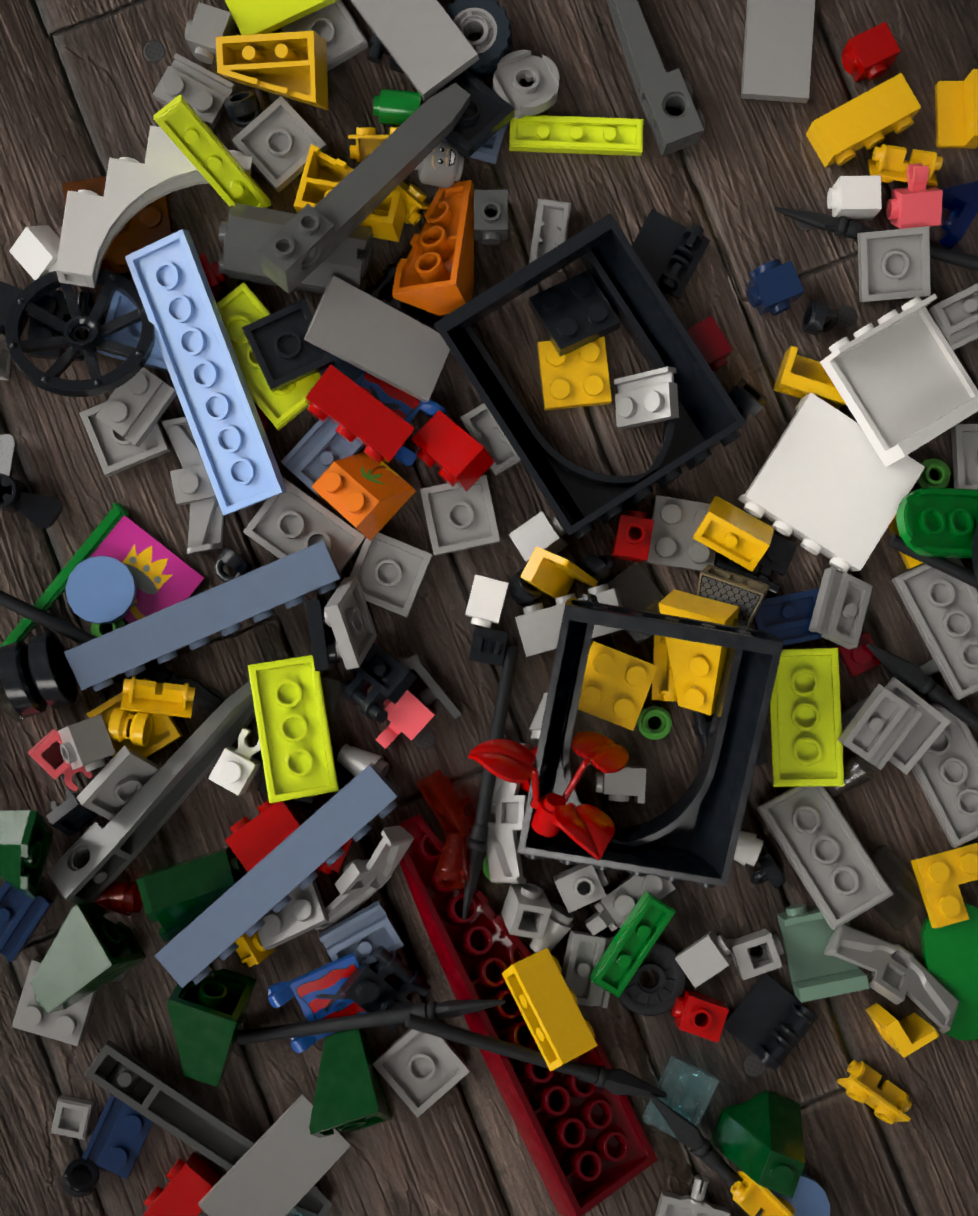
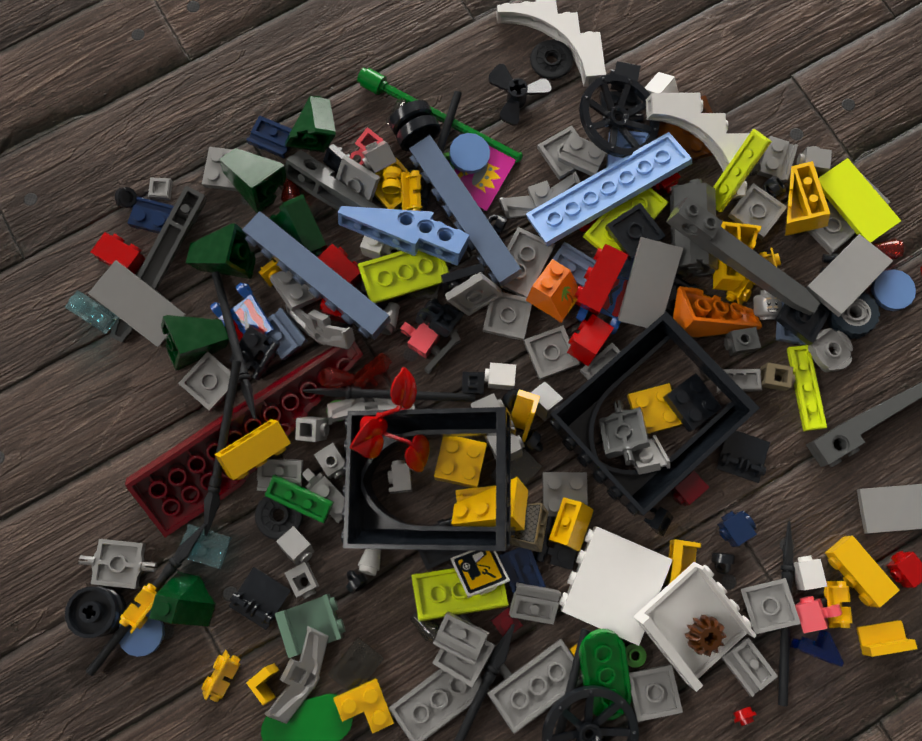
camera: 85 degrees right, 10 degrees down
(217, 747) = (406, 231): none -> medium blue brick
(395, 106) = (797, 271): green brick -> none
(554, 162) = (784, 374): none -> dark tan brick
(558, 926) = (303, 449): light grey cone -> none
(608, 427) = (624, 433): none -> dark grey plate
(632, 537) = (557, 460): red brick -> none
(664, 727) = (441, 486): bright green plate -> none
(700, 1015) = (259, 549): red brick -> none
(795, 684) = (479, 571): none -> piece
(825, 853) = (372, 616): light grey tile -> none
(925, 367) = (705, 635): none -> reddish brown gear

